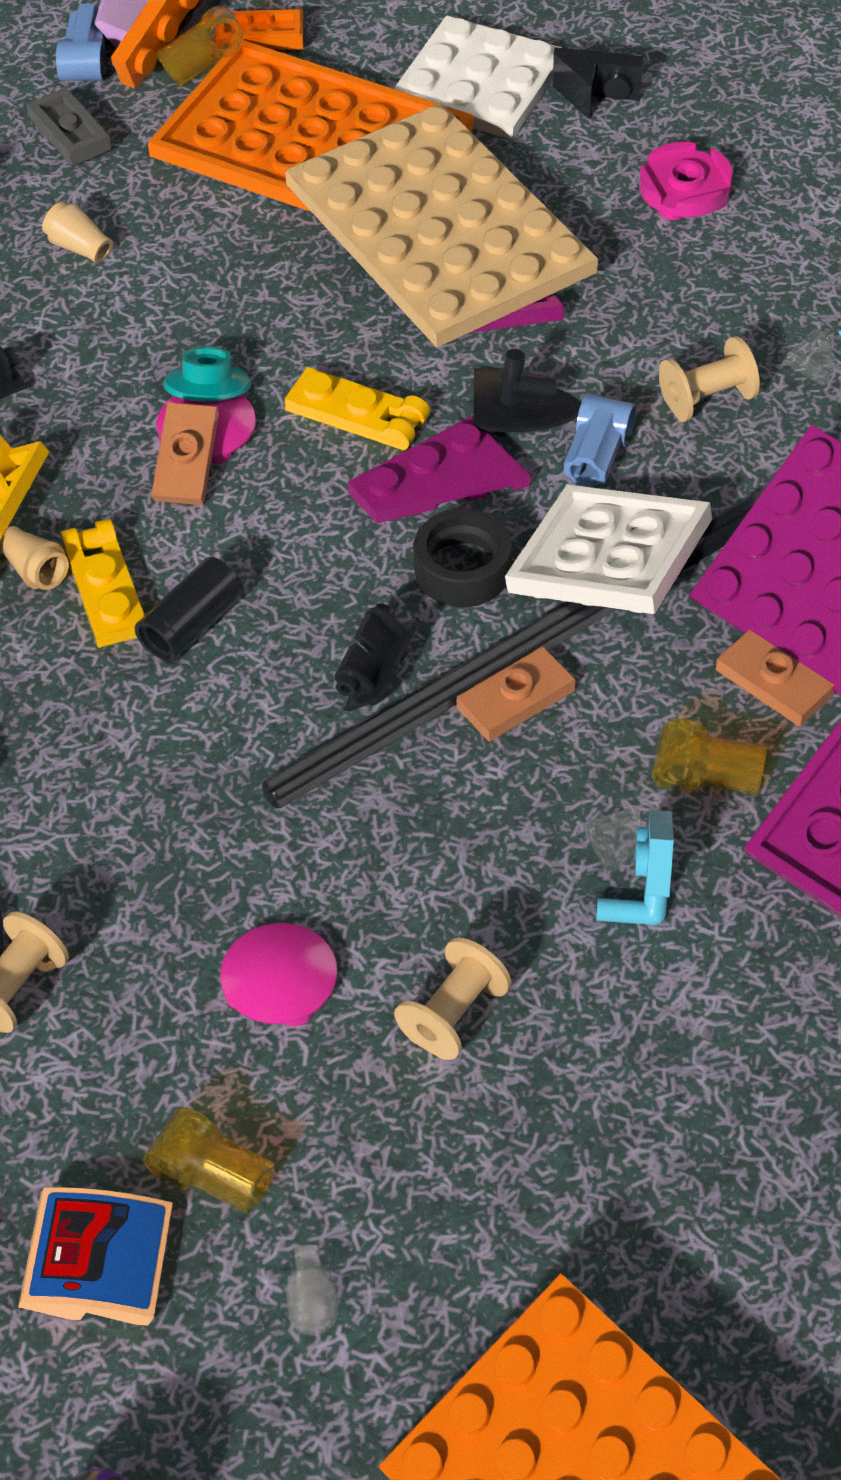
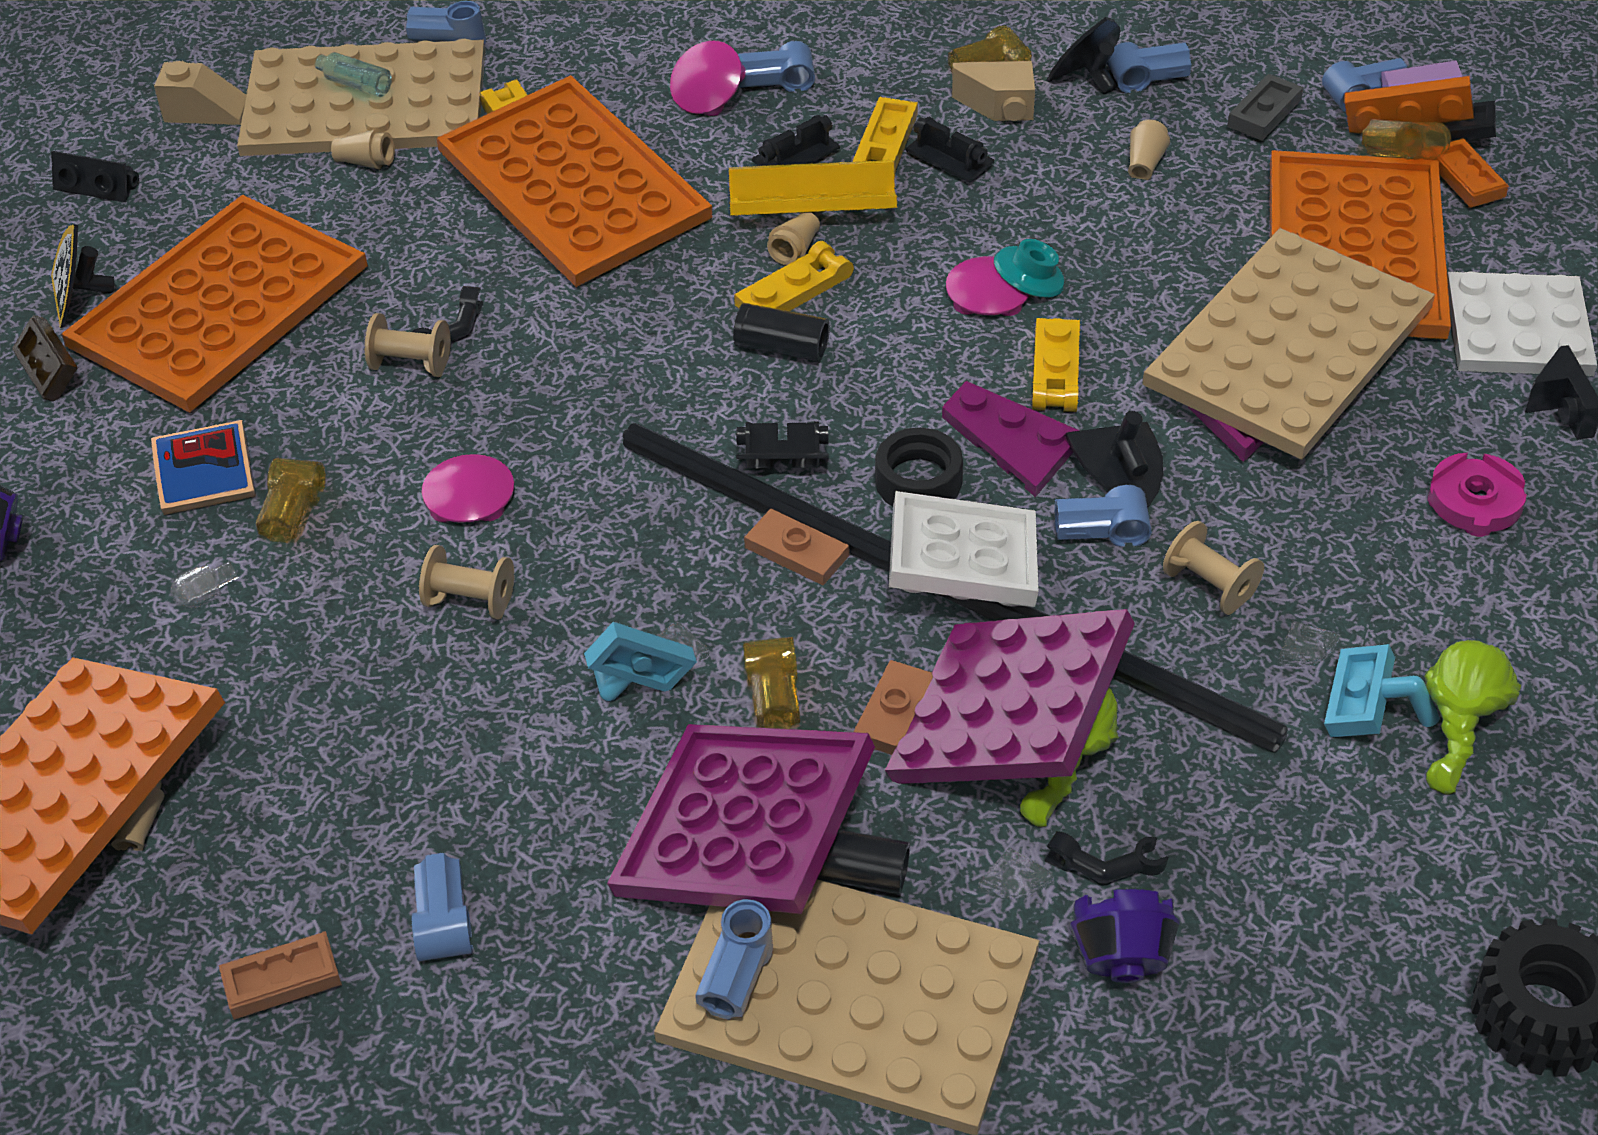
camera: 70 degrees right, 5 degrees down
(185, 453) = (939, 280): nougat plate -> none

